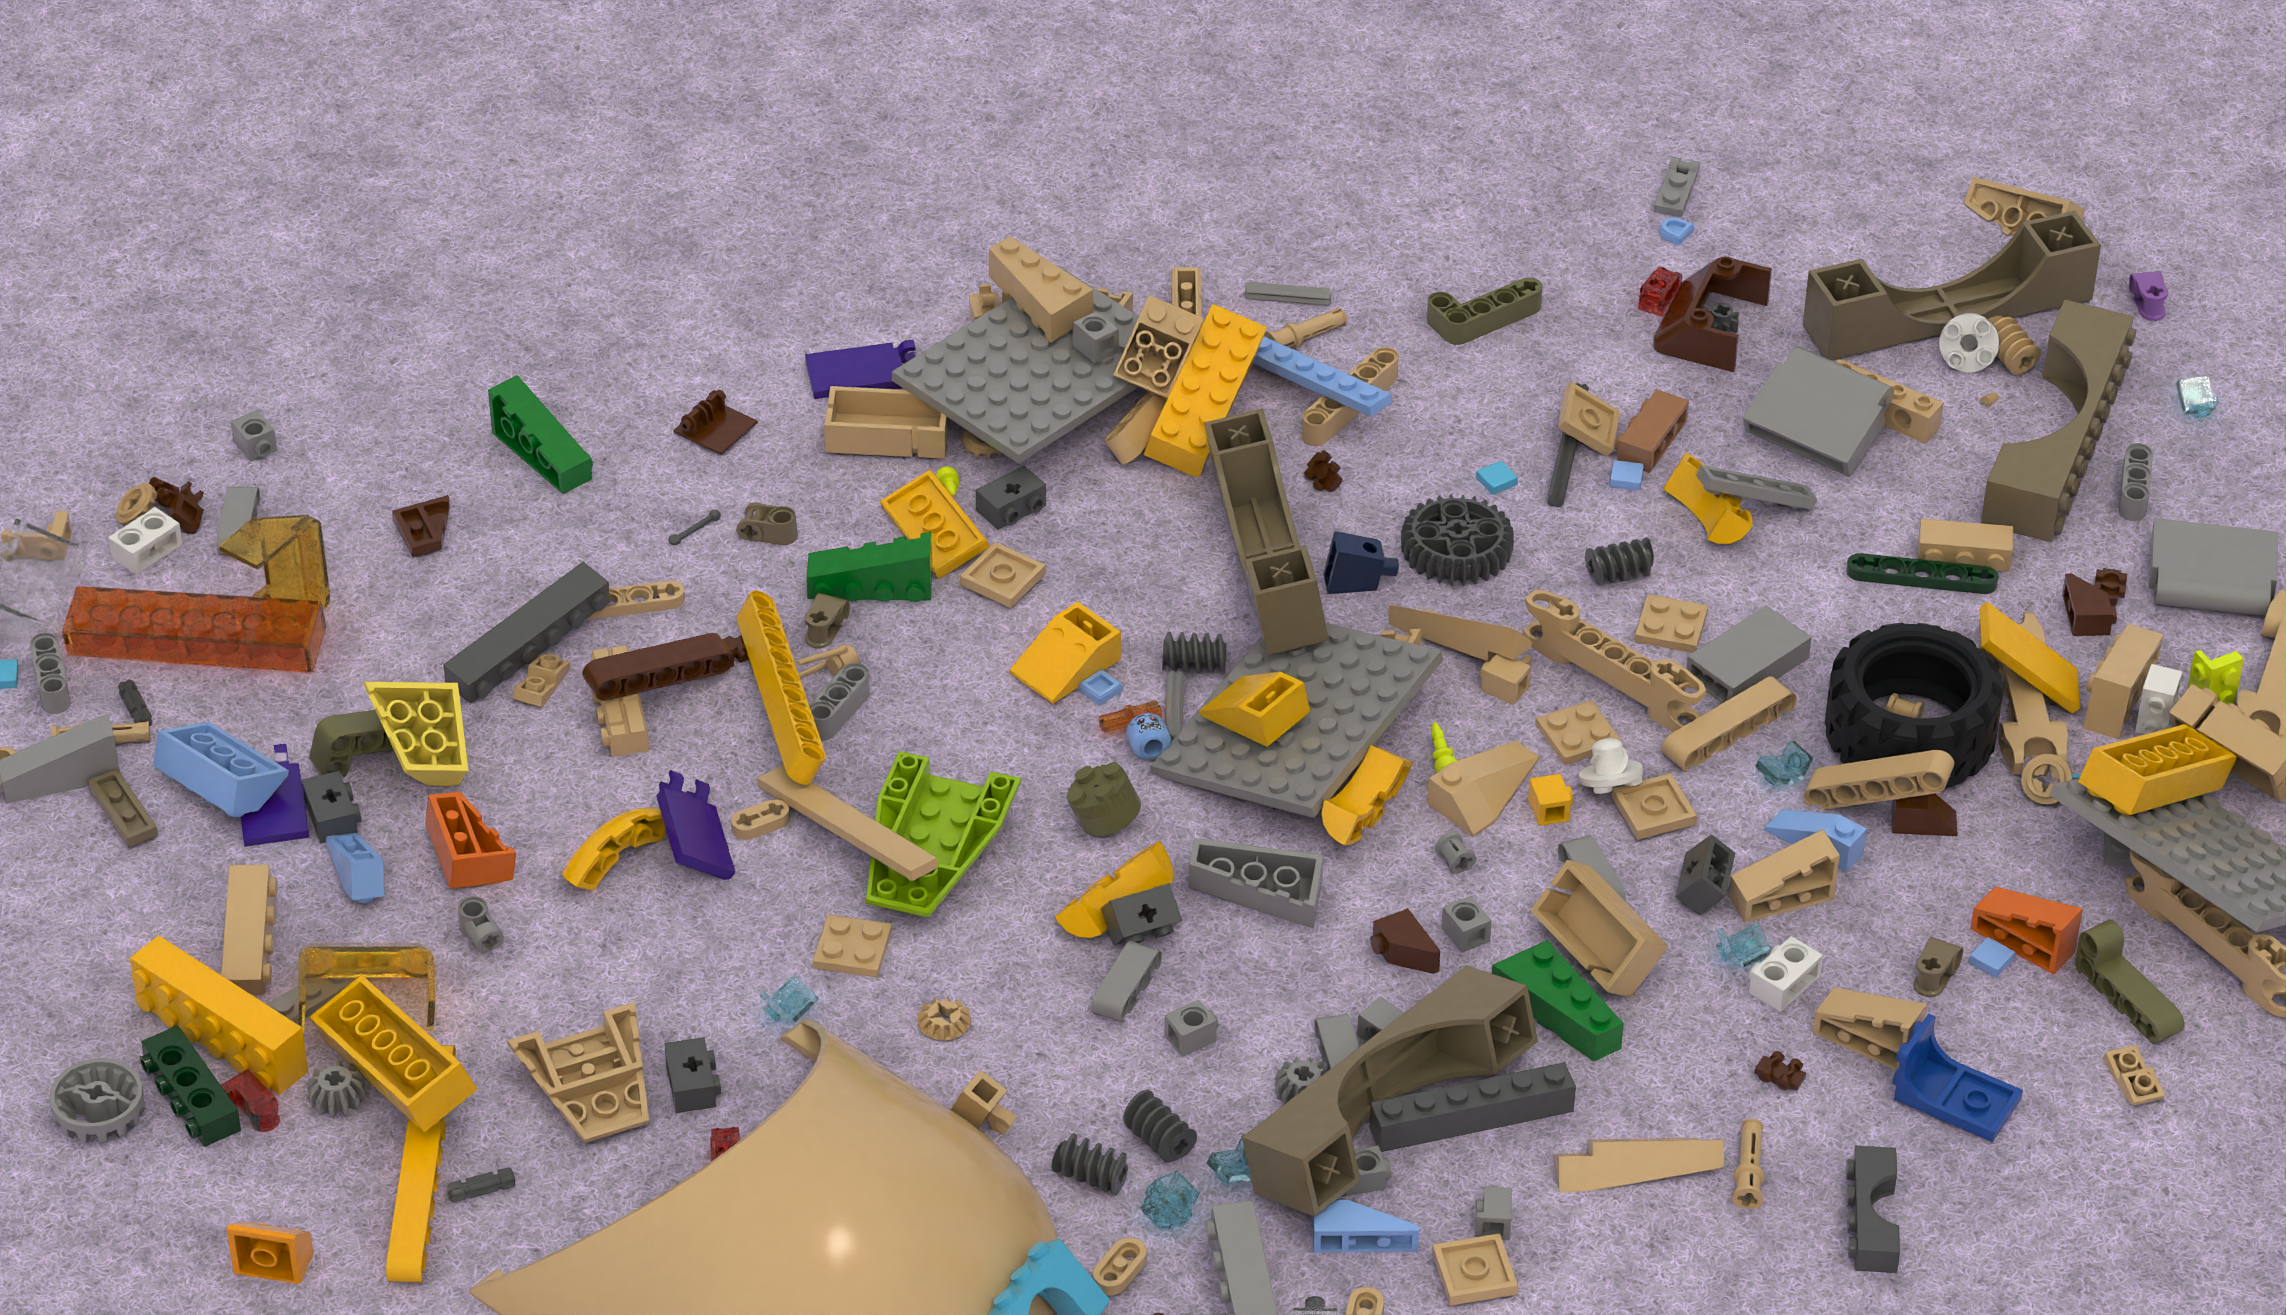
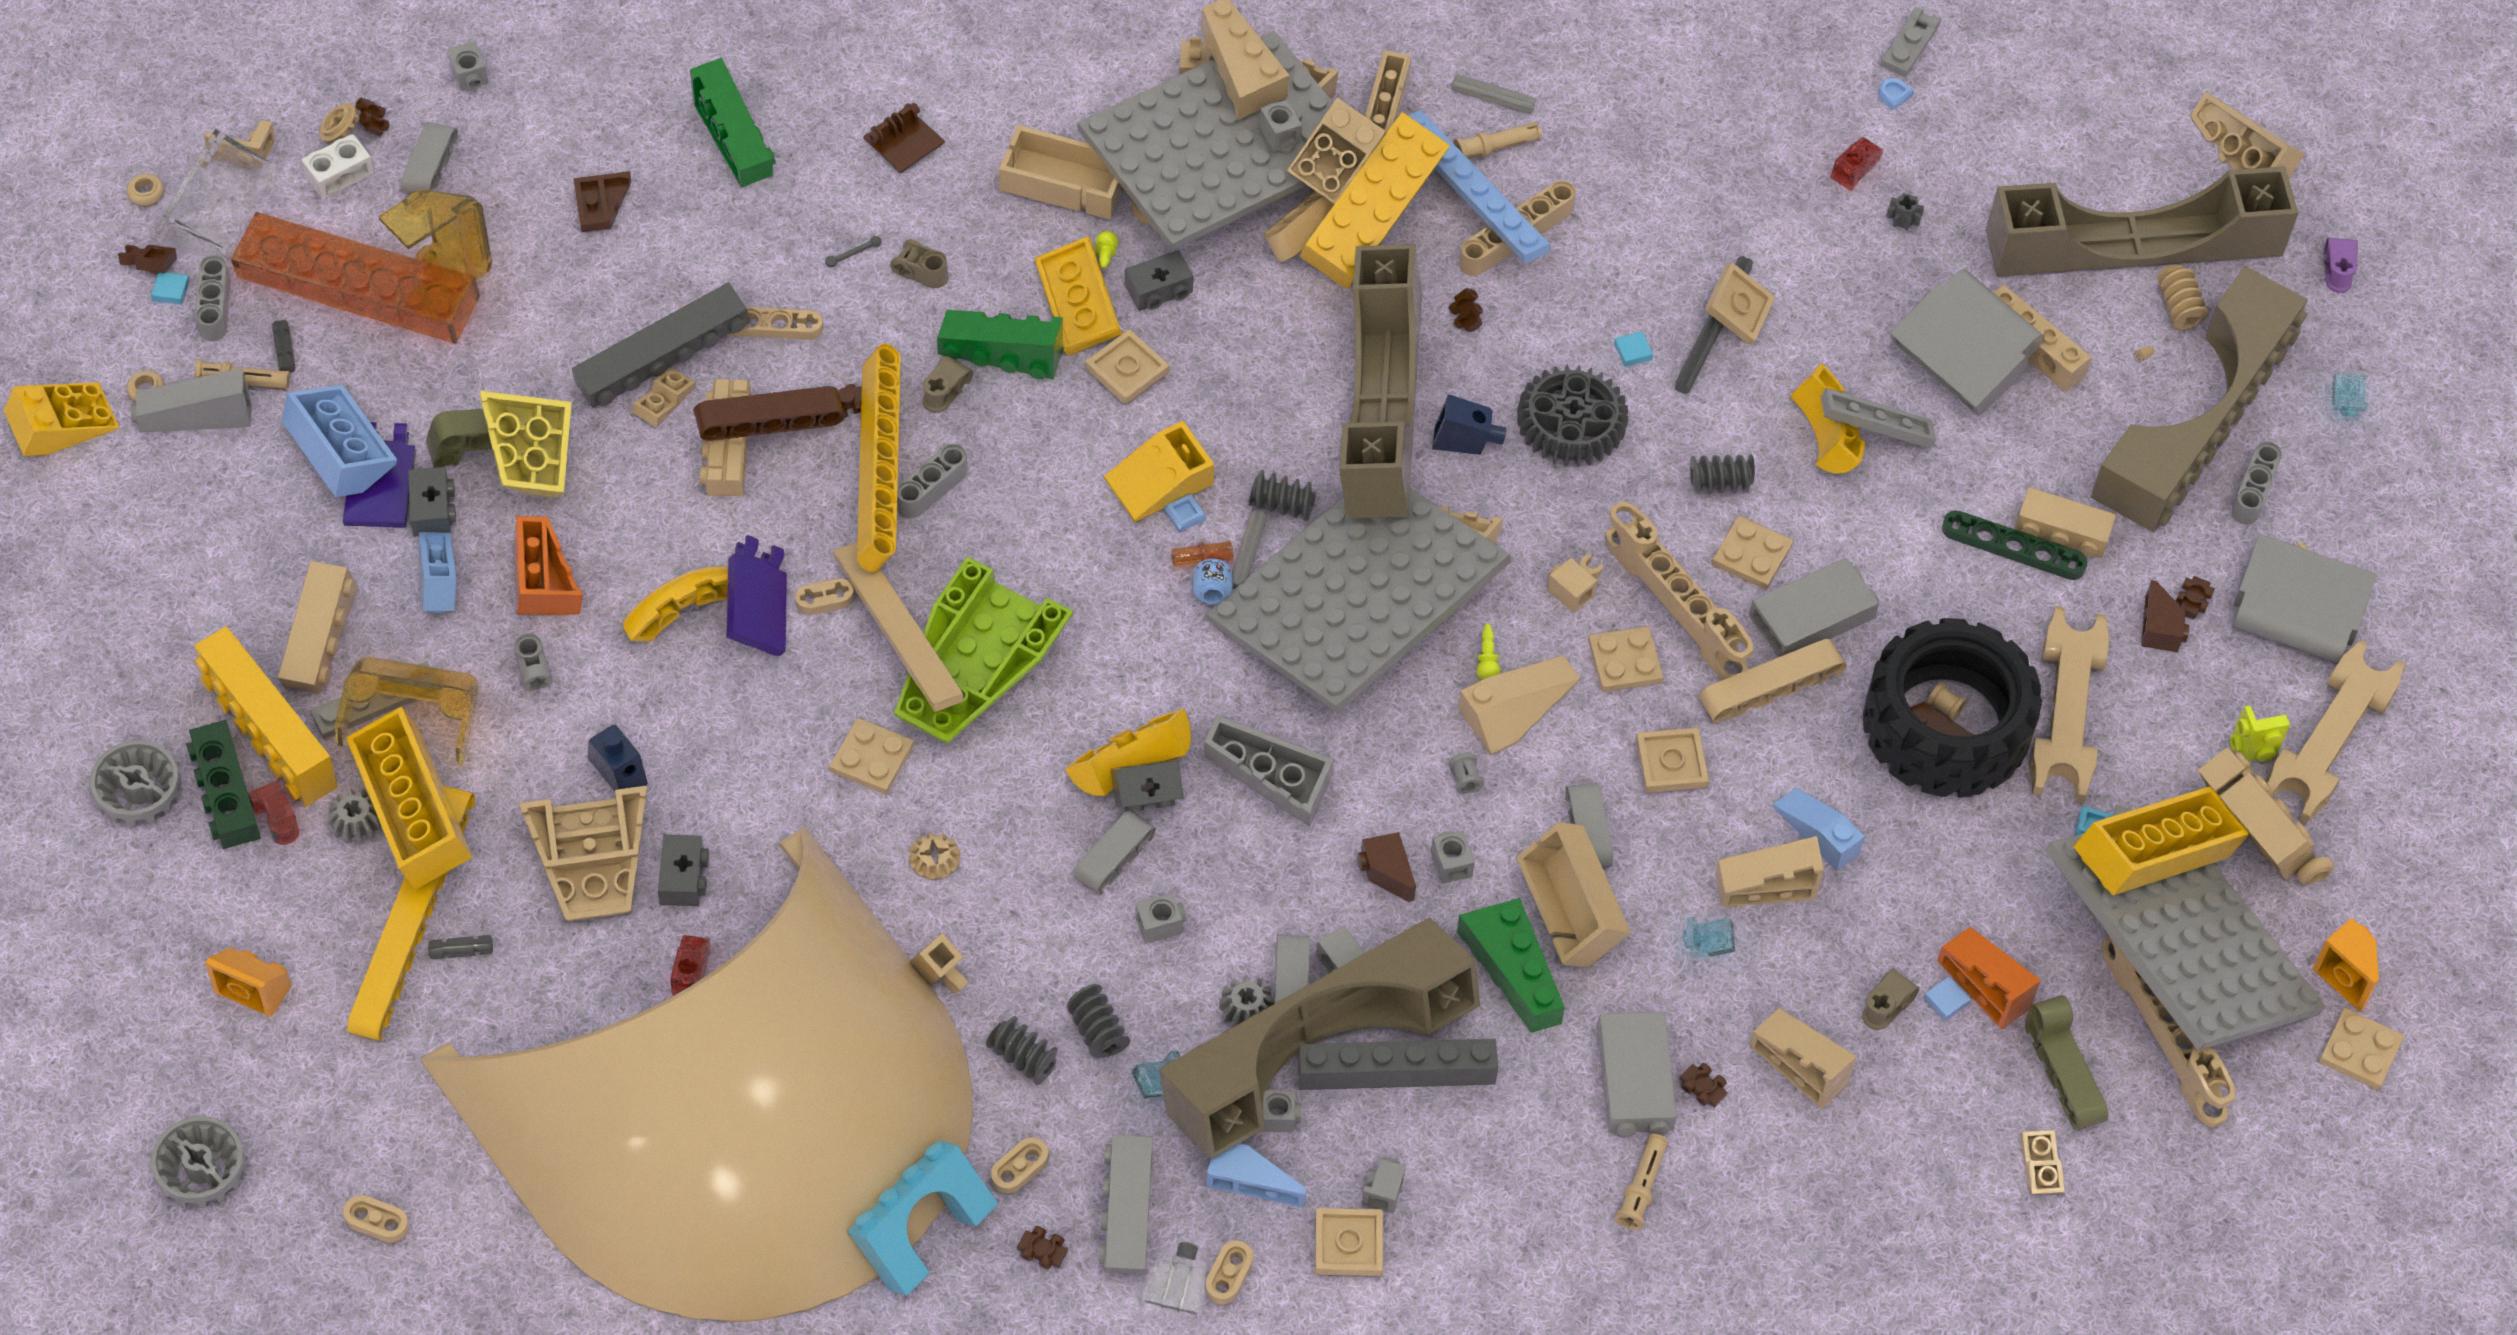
camera: 10 degrees right, 15 degrees up
(122, 808) = (242, 462): dark tan plate -> none
(185, 509) = (382, 139): reddish brown plate -> none
(592, 987) = (611, 754): none -> dark blue torso
(789, 1001) = (794, 808): clear light blue bracket -> none
(836, 660) = (944, 434): tan plant -> none
(857, 367) = (1056, 99): dark purple tile -> none
(1103, 799) = (1146, 648): olive piece -> none
(1170, 1201) = (1083, 1108): clear light blue brick -> none
(1260, 706) = (1318, 580): yellow slope -> none
(1363, 797) = (1395, 694): yellow brick -> none
(1461, 634) = (1541, 526): tan wedge -> none
(1484, 314) = (1676, 157): olive beam -> none
(1550, 799) = (1574, 732): yellow brick -> none
(1610, 767) = (1640, 713): white plate -> none
(1626, 475) = (1760, 371): light blue tile -> none
(1635, 1161) = (1535, 1154): tan wedge -> none
(1652, 429) = (1798, 327): medium nougat brick -> none
(1687, 327) = (1866, 217): reddish brown windscreen -> none
(1705, 874) = (1695, 852): dark grey brick -> none
(1711, 1071) = (1636, 1073): none -> light grey brick
(1785, 768) = (1811, 743): clear light blue bracket -> none
(1785, 973) = (1744, 982): white brick -> none
(1875, 1239) = (1736, 1294): dark grey arch -> none
(1879, 779) = (1892, 785): tan beam -> none
(1923, 816) = (1929, 823): reddish brown slope -> none
(1951, 1090) = (1861, 1141): blue bracket -> none
(1969, 342) = (2140, 289): white plate -> none
(2029, 657) = (2082, 675): yellow tile -> none
(2039, 767) = (2048, 816): tan gear -> none
(2120, 679) = (2169, 710): tan wedge -> none
(2157, 699) = (2195, 748): white brick -> none

